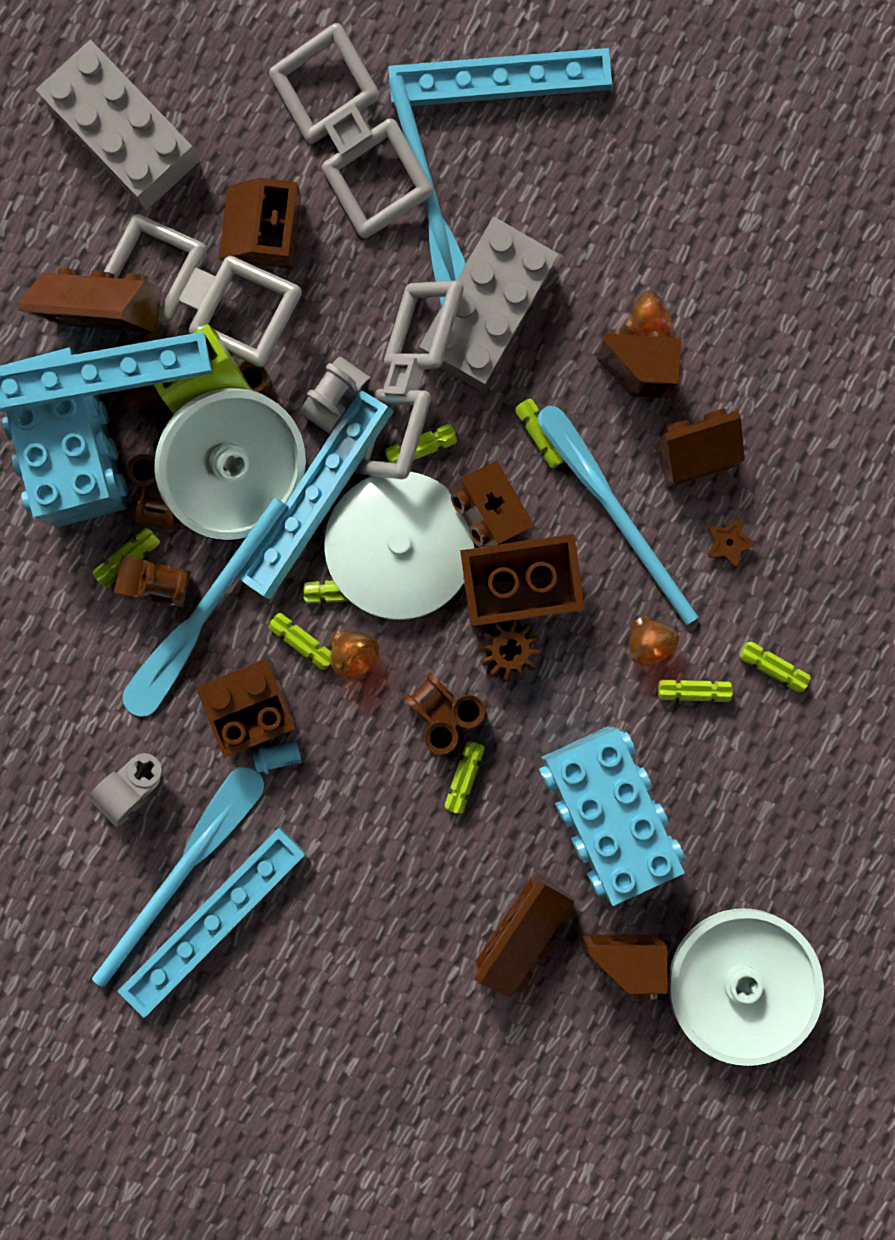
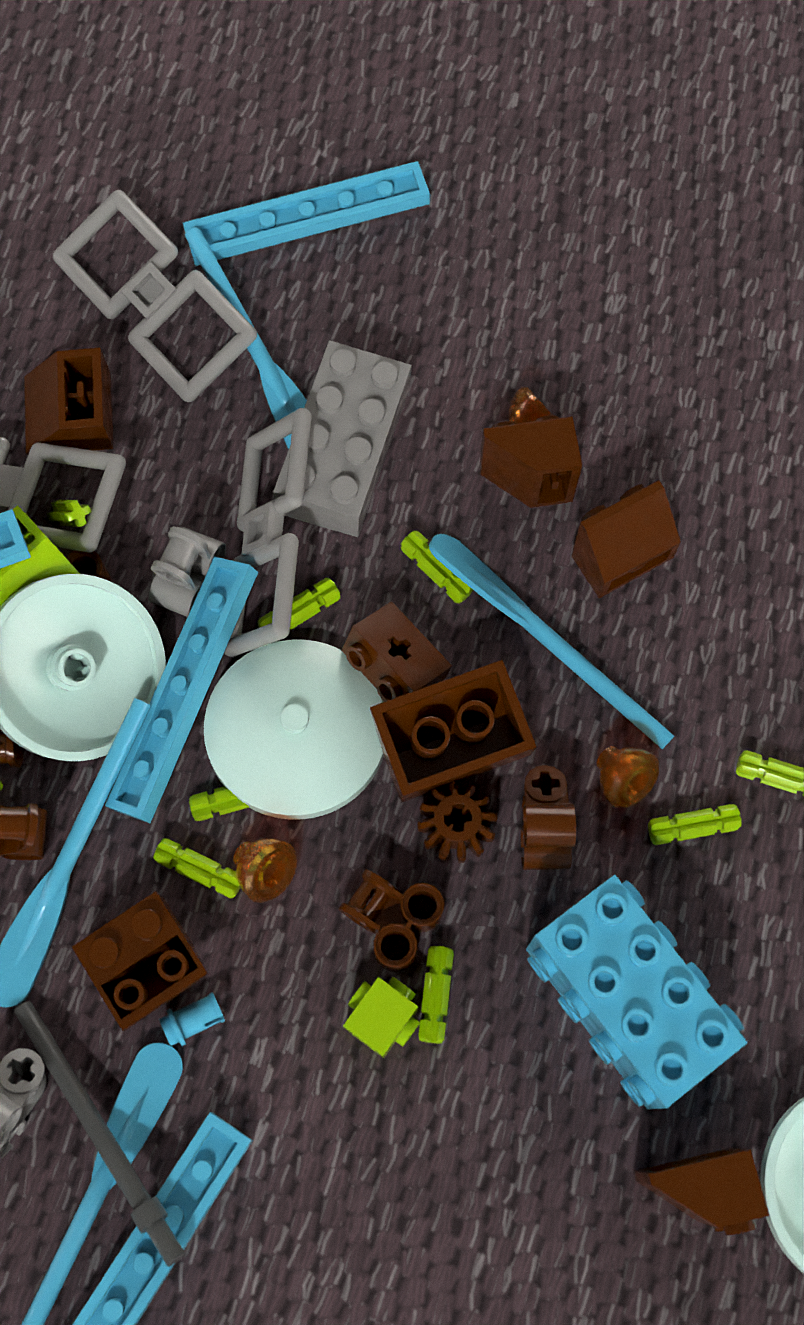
camera: 10 degrees left, 15 degrees down
(220, 890) = (148, 1212): none -> dark grey bar
(247, 325) = (69, 513): none -> lime axle
(420, 785) = (382, 1015): none -> lime brick
(523, 936) = (559, 1187): reddish brown slope -> none
(579, 667) = (547, 820): none -> reddish brown piece
(721, 549) = (687, 654): reddish brown plate -> none

